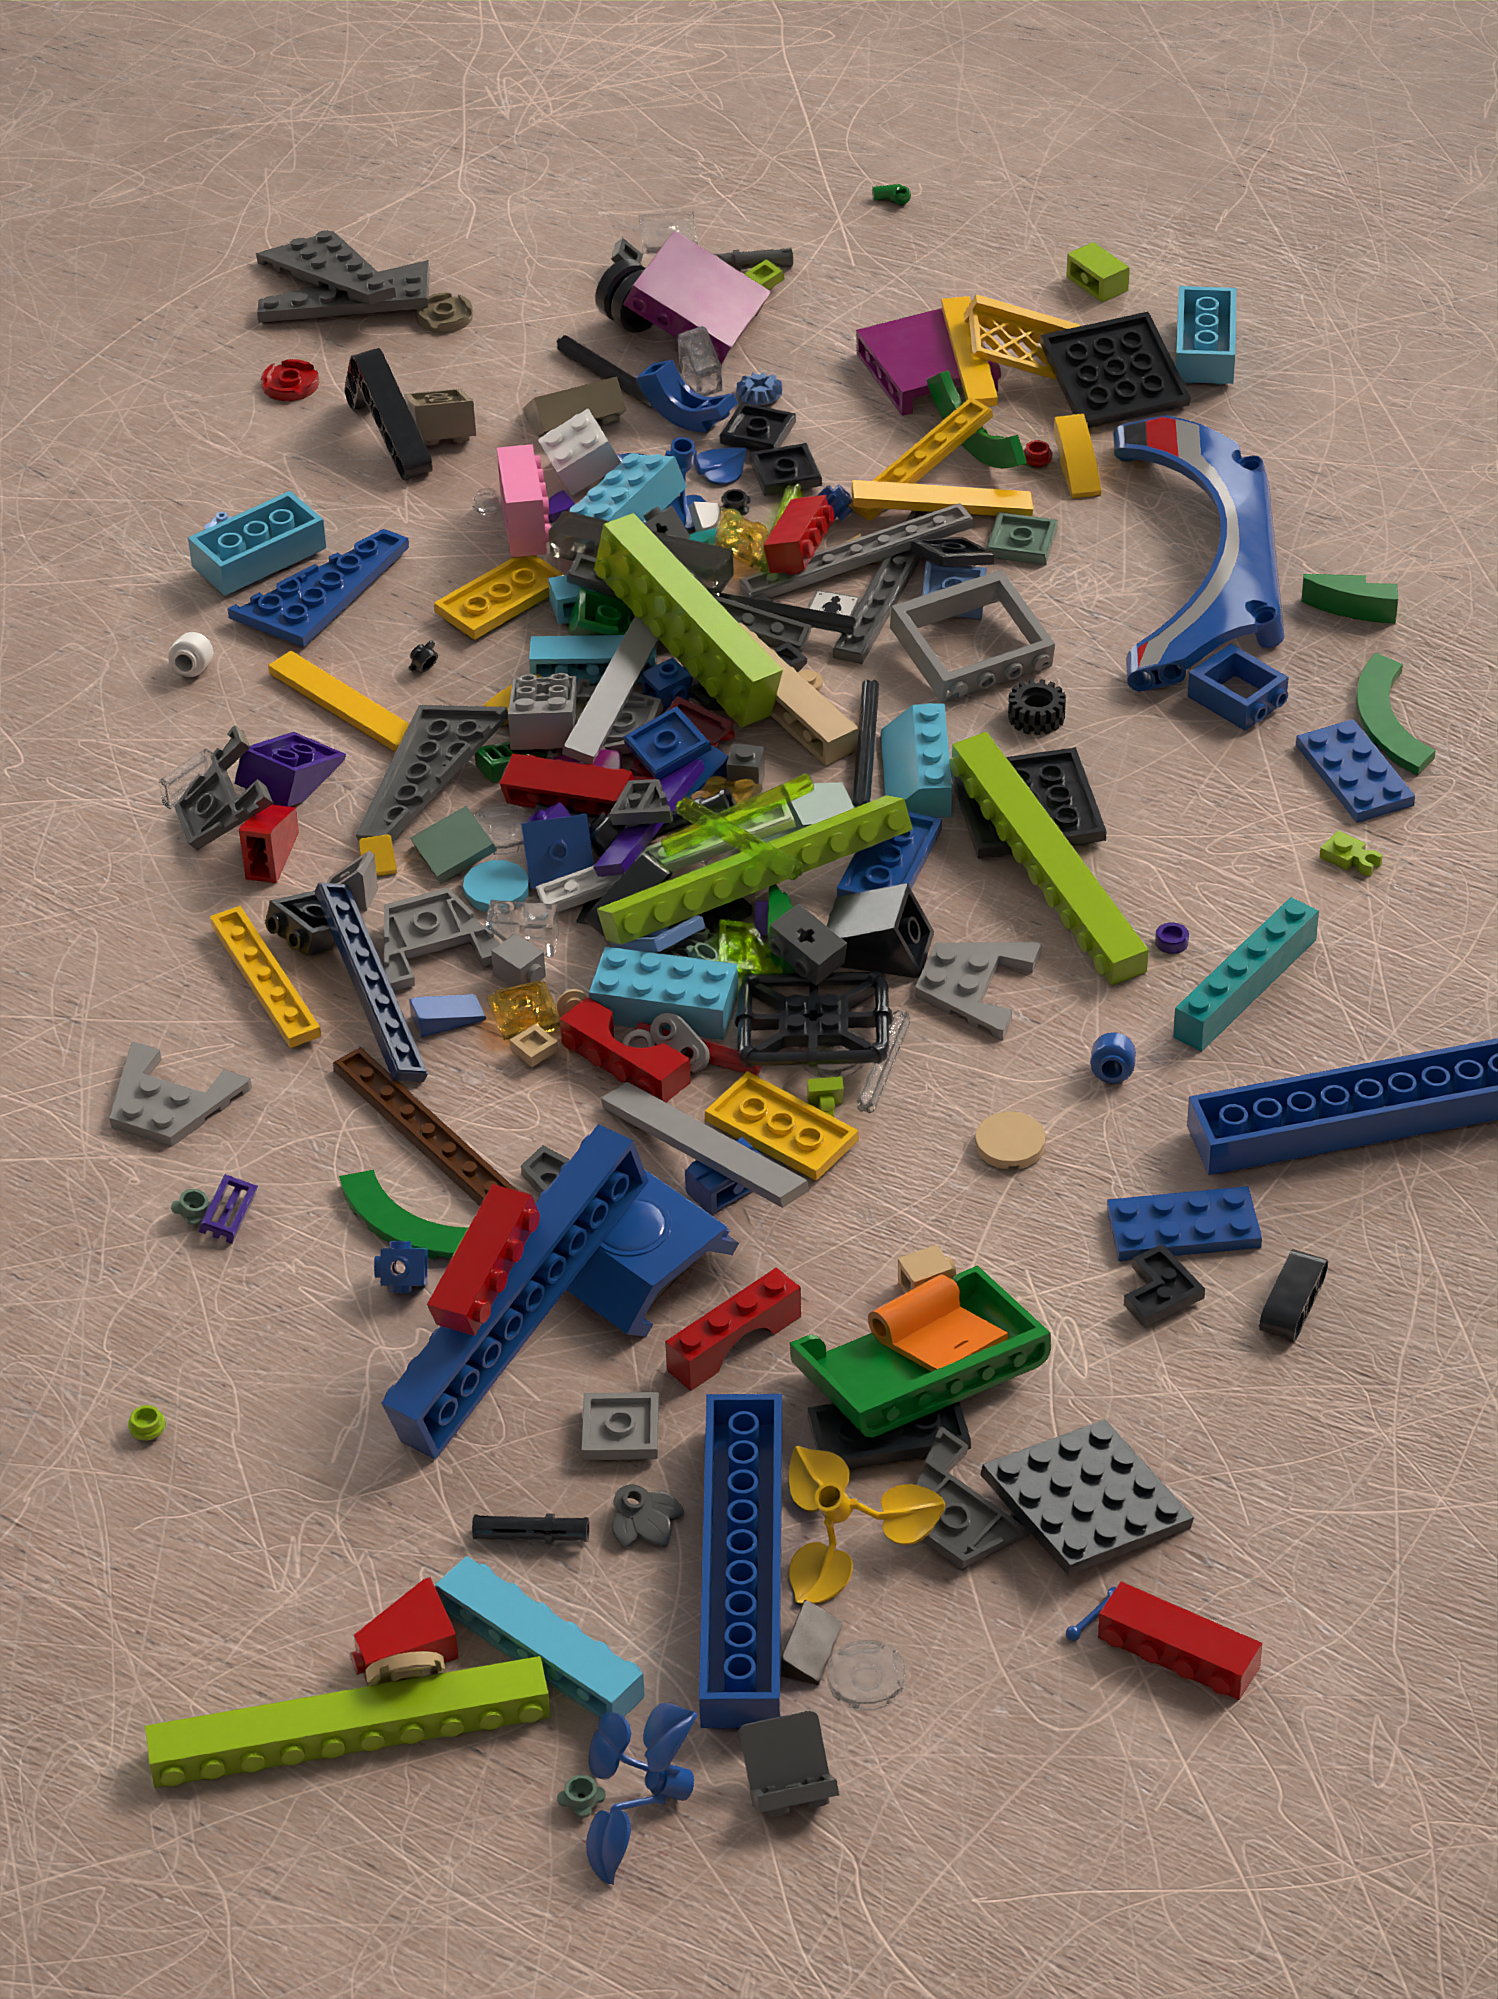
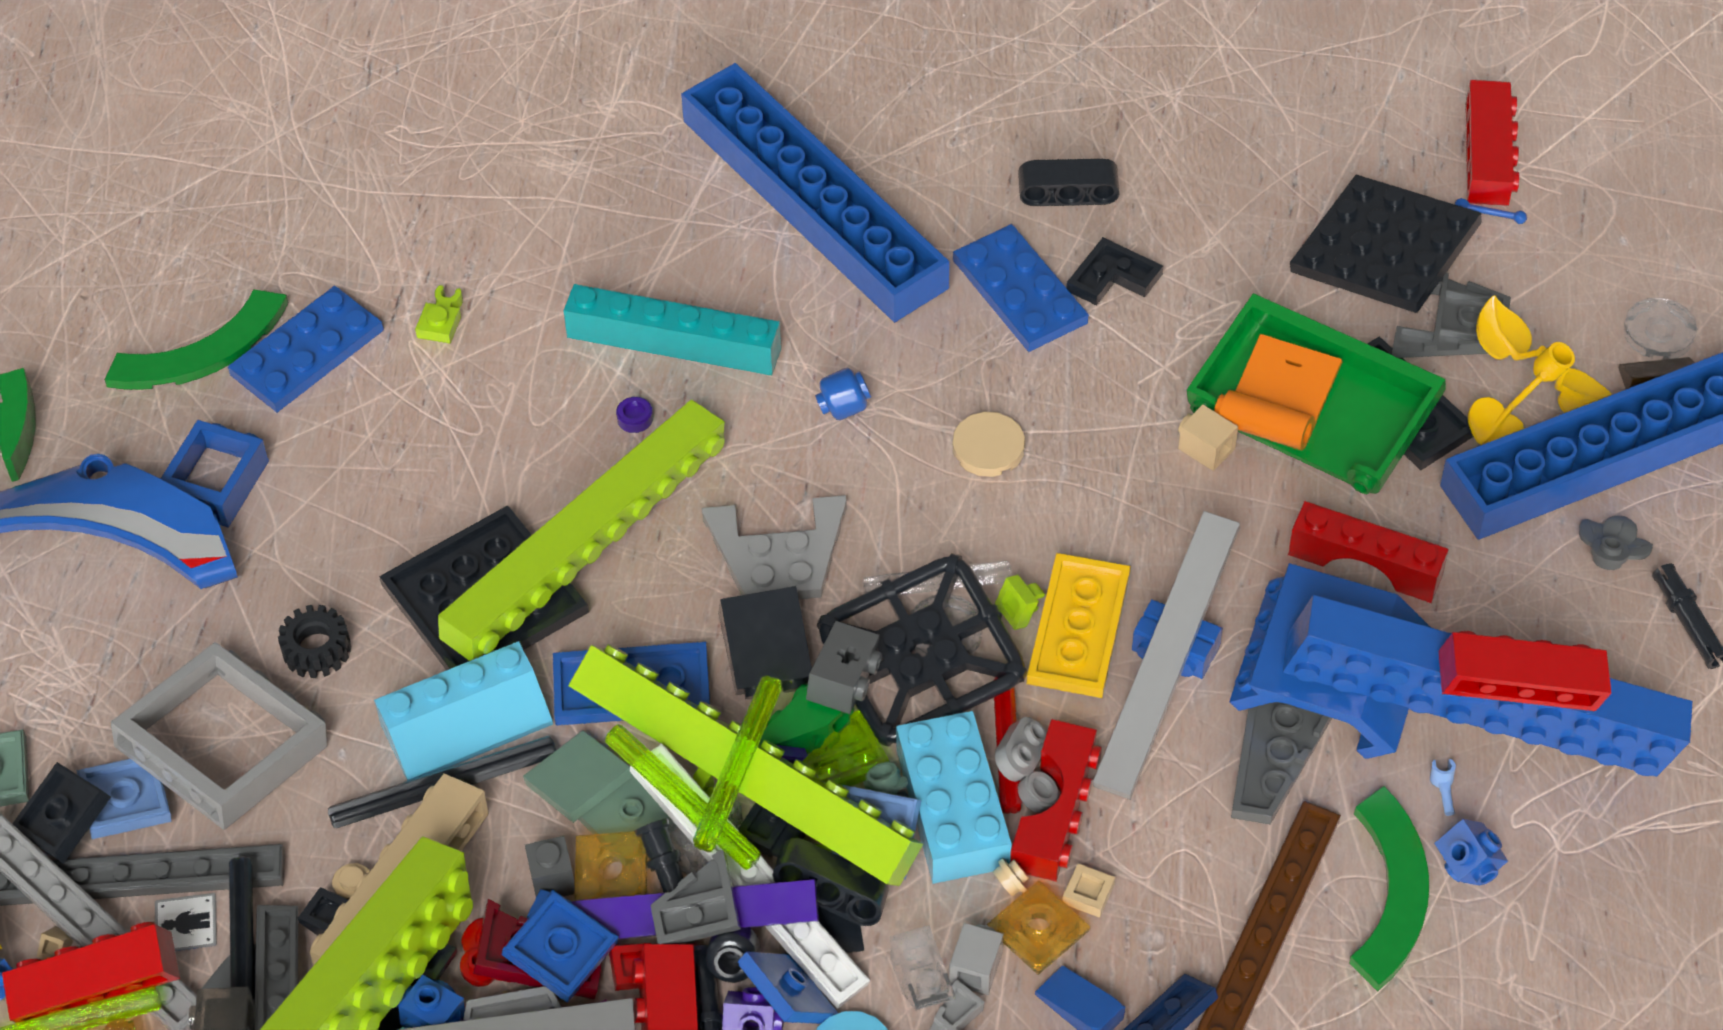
camera: 115 degrees left, 10 degrees up
(620, 1426) = (1532, 597): light grey plate -> none

